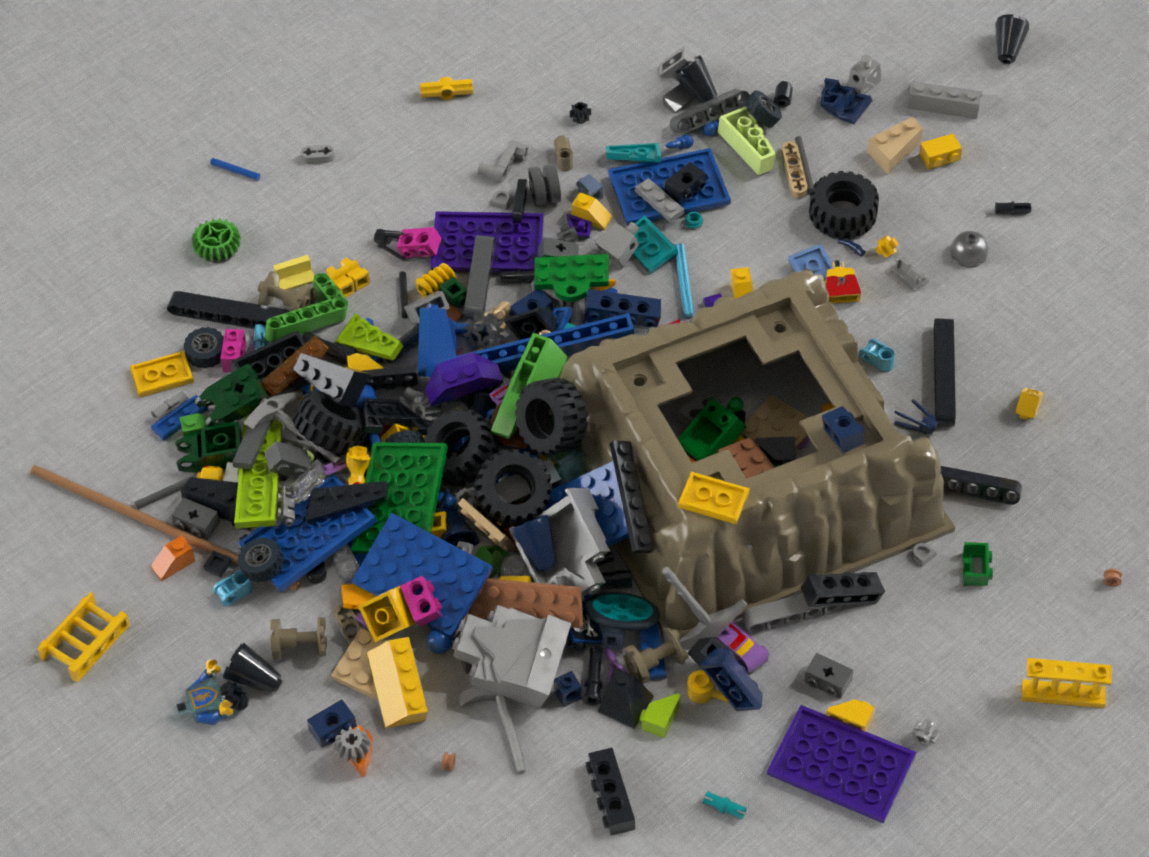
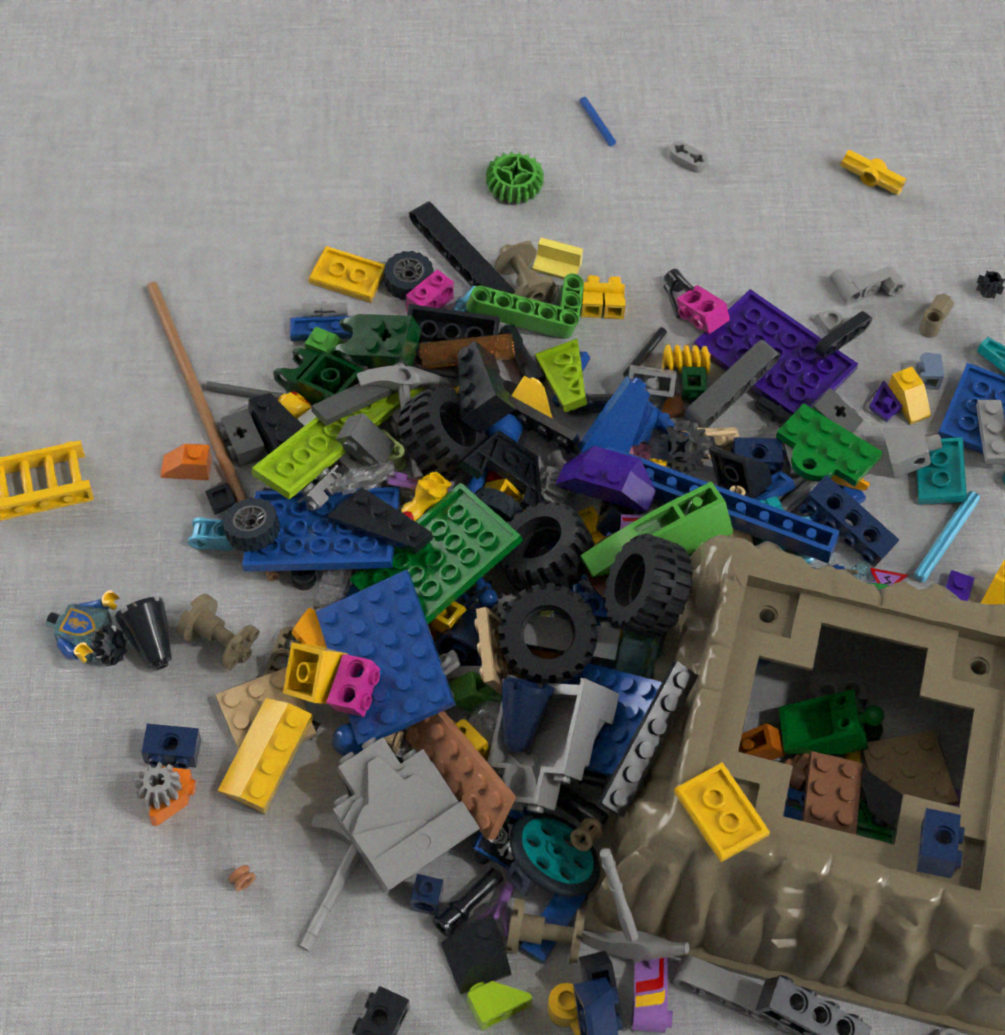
camera: 35 degrees right, 5 degrees up
(544, 185) = (881, 334): dark grey wheel -> none
(567, 234) = (863, 403): dark grey gear -> none
(634, 591) = (579, 833): none -> tan bush

